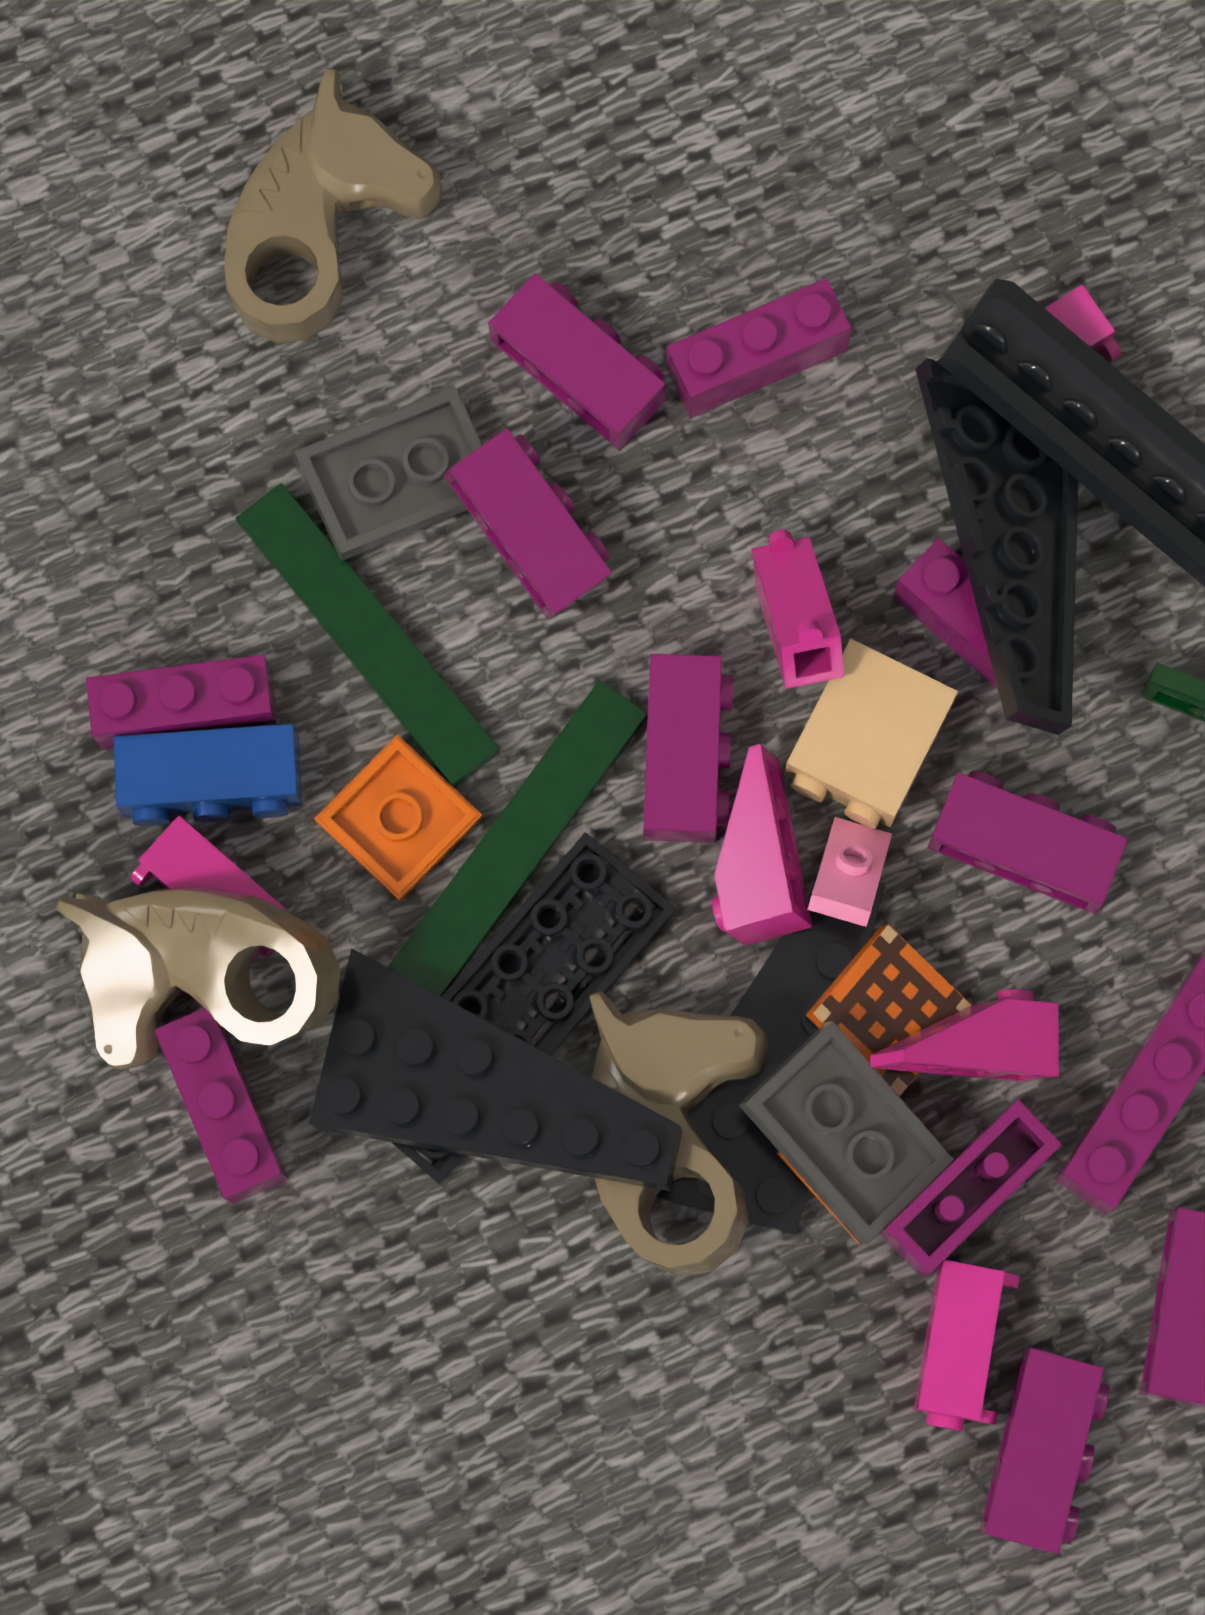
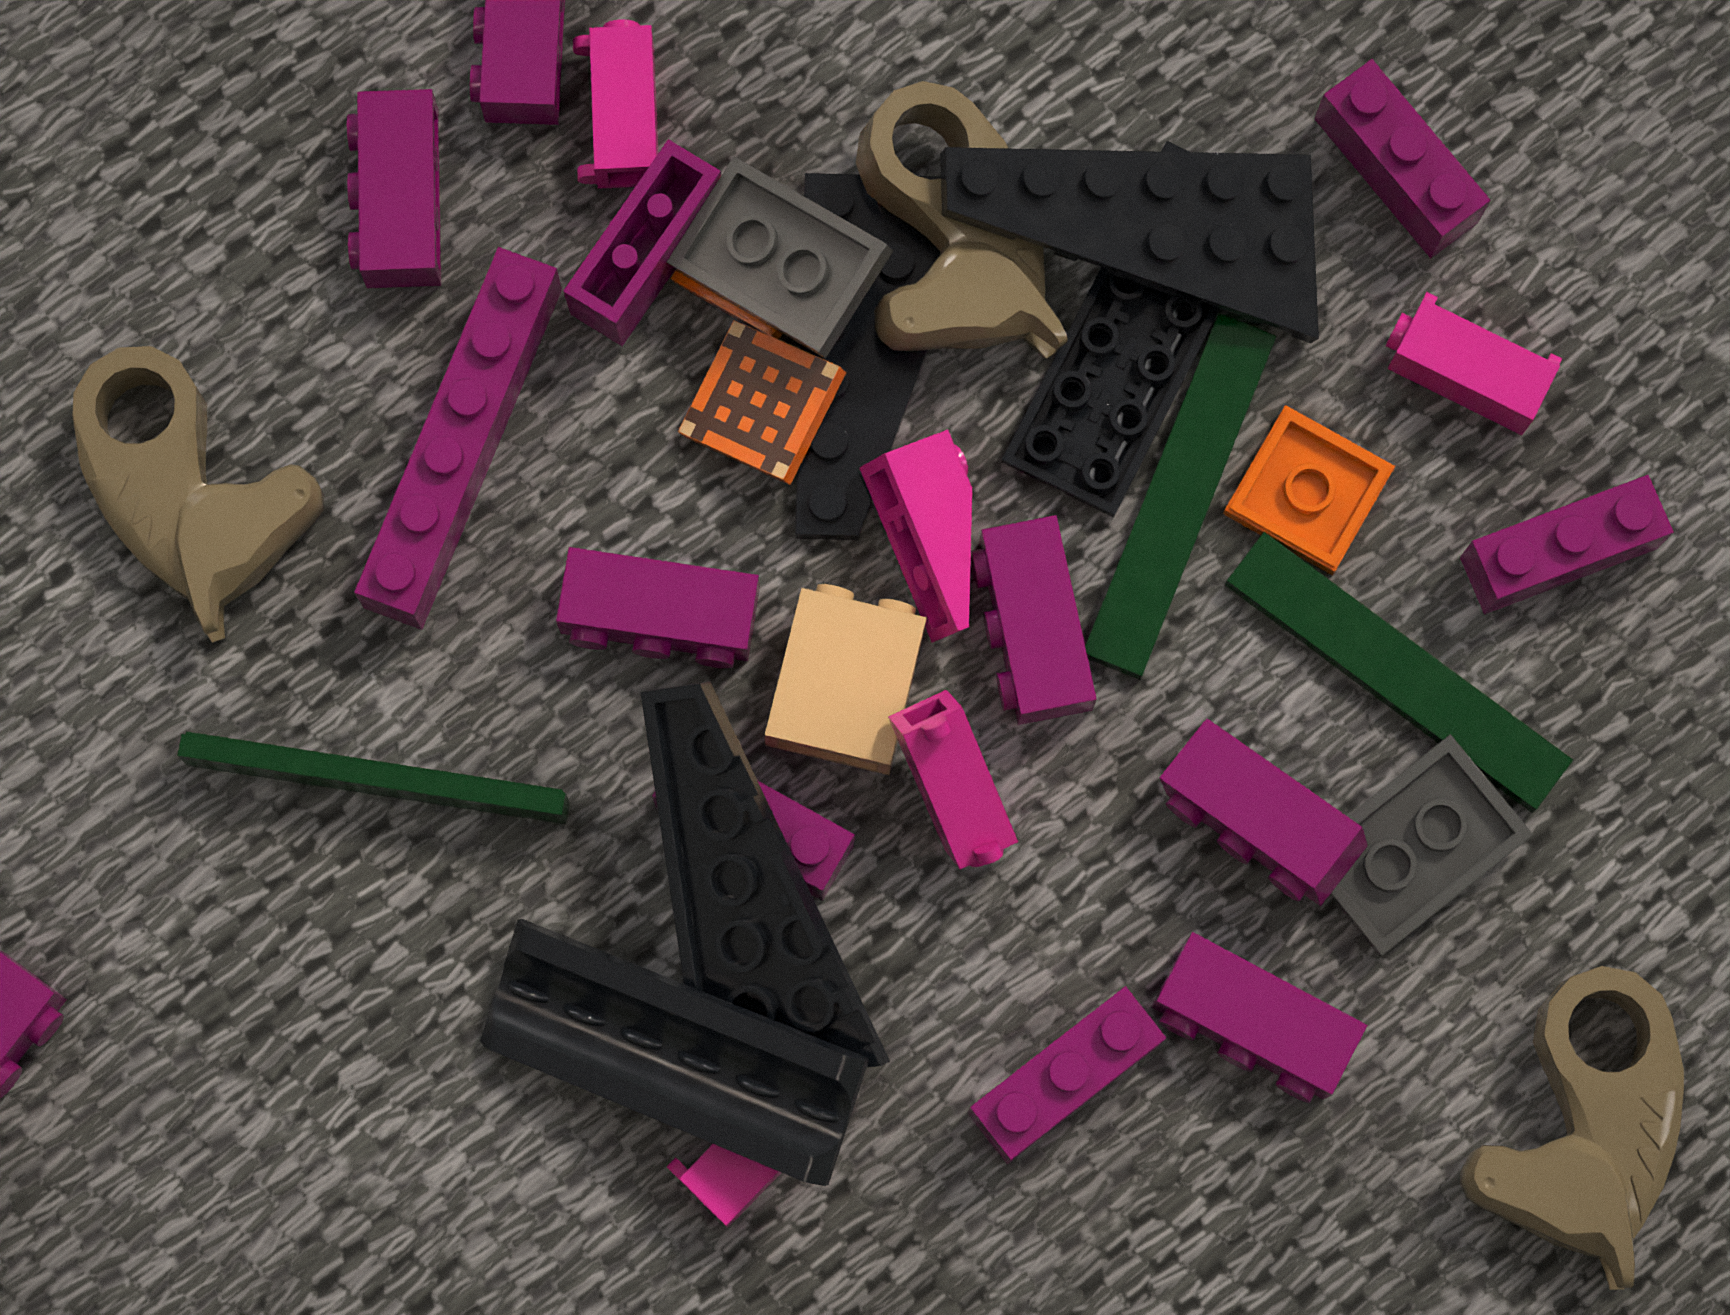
camera: 160 degrees right, 0 degrees up
(199, 942) = (1462, 290): dark tan animal -> none
(207, 773) = (1514, 479): blue brick -> none
(850, 872) = (834, 526): bright pink plate -> none
(988, 1040) = (668, 380): dark pink slope -> none

